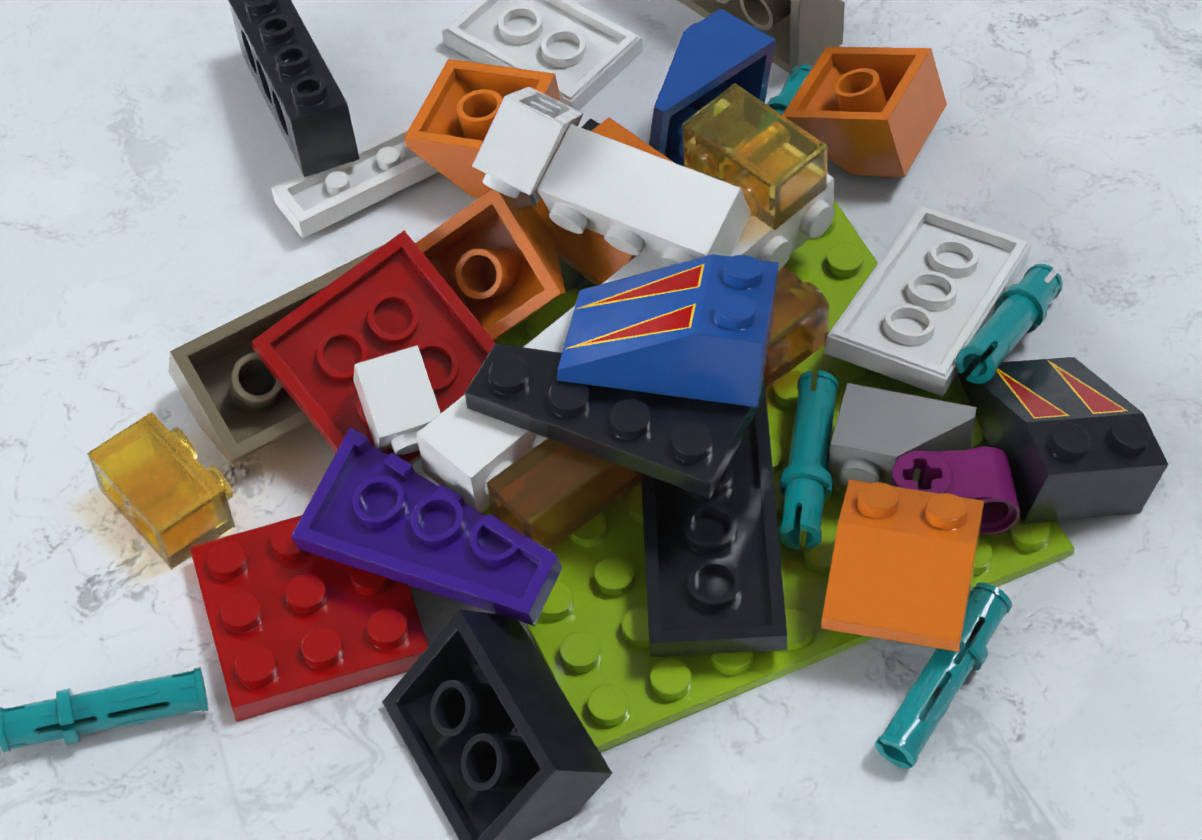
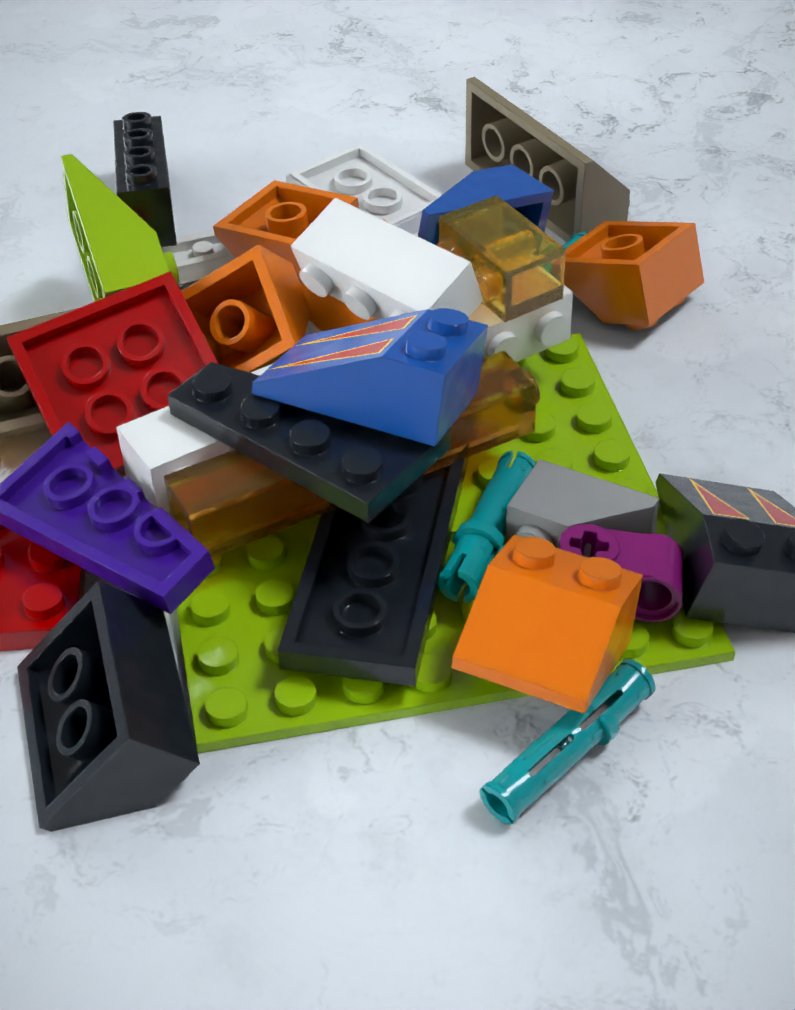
camera: 10 degrees right, 10 degrees down
(314, 198) = (109, 236): none -> lime slope
(396, 399) = (112, 395): white brick -> none
(523, 141) = (281, 204): white brick -> none
(927, 299) = (642, 419): white tile -> none
(1017, 312) = (724, 441): teal pin -> none

